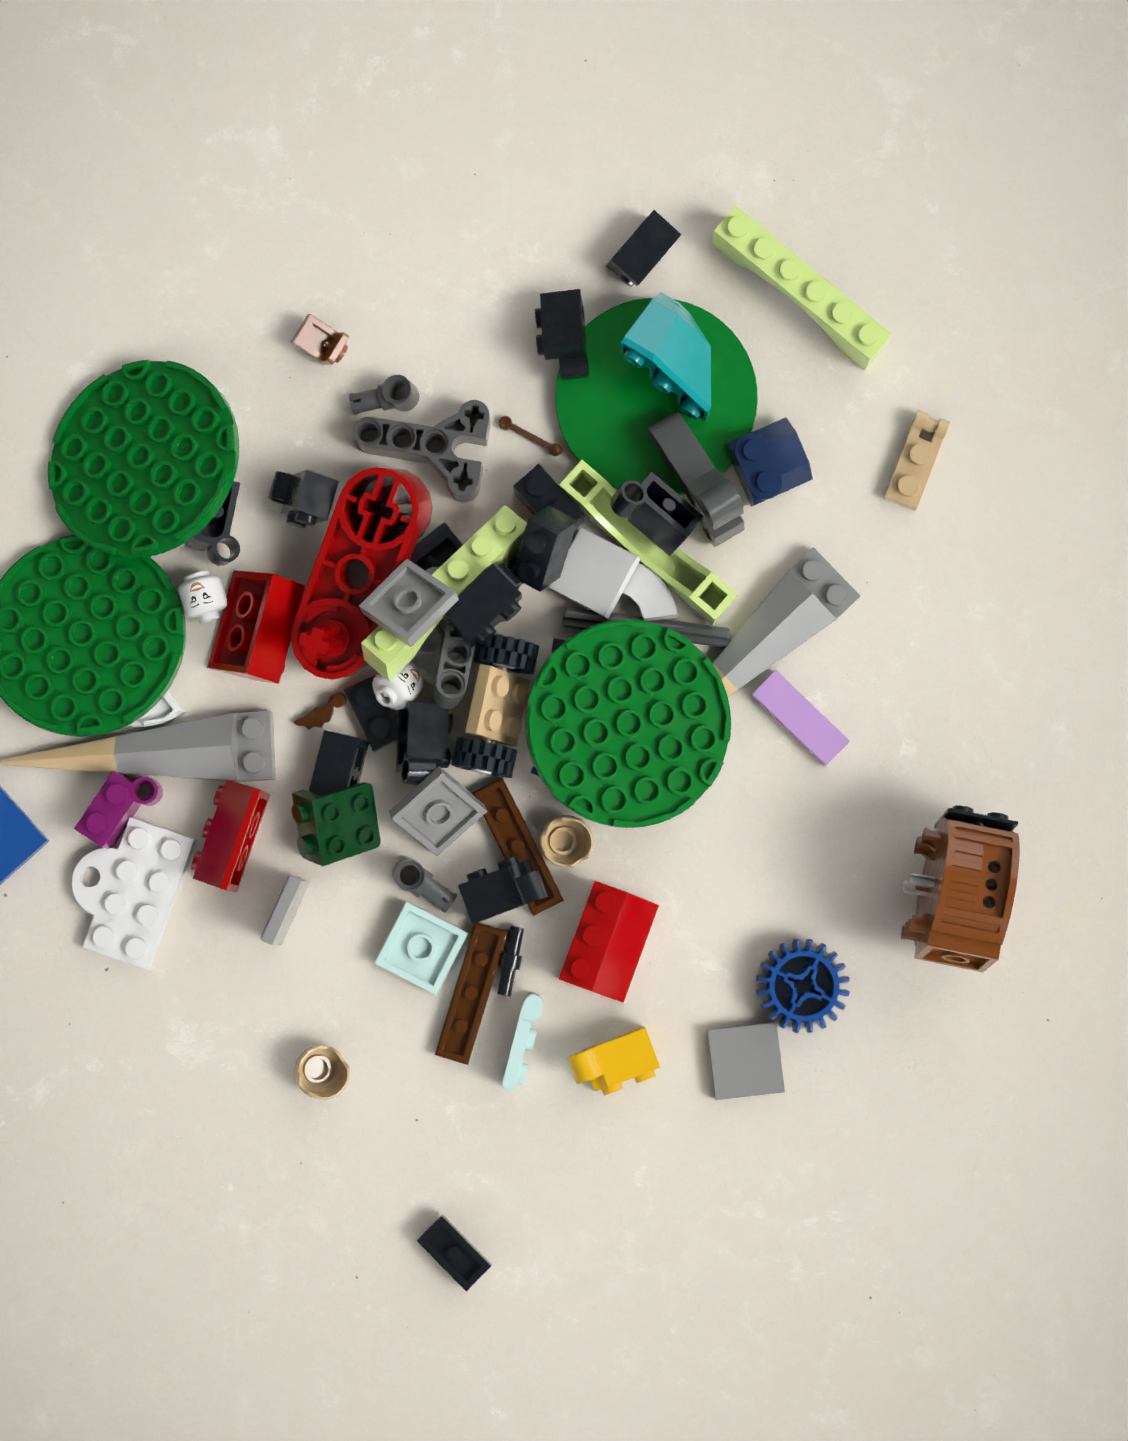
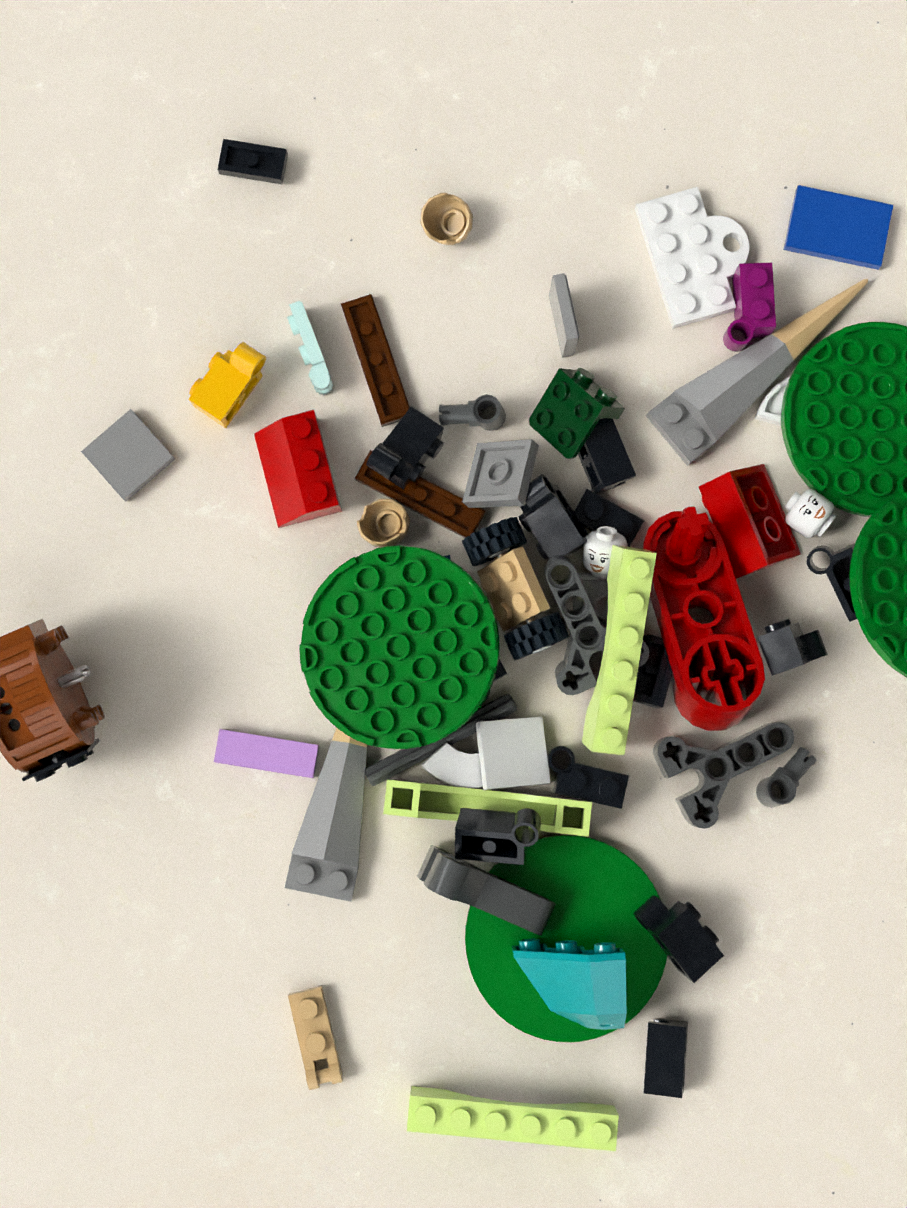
camera: 145 degrees right, 0 degrees up
(229, 835) = (648, 343): red slope -> none
(319, 716) = (646, 489): reddish brown piece -> none
(320, 341) = (872, 787): bracket -> none
(408, 602) = (641, 612): light grey tile -> none
(421, 948) = (438, 365): light aqua plate -> none
(485, 605) = (580, 658): black hinge -> none
(506, 423) = (672, 828): reddish brown hinge -> none
(510, 961) = (363, 404): black bar -> none
(543, 548) = (567, 739): black hinge -> none
(769, 461) = (435, 948): dark blue slope -> none
(794, 1000) = (94, 542): blue gear -> none

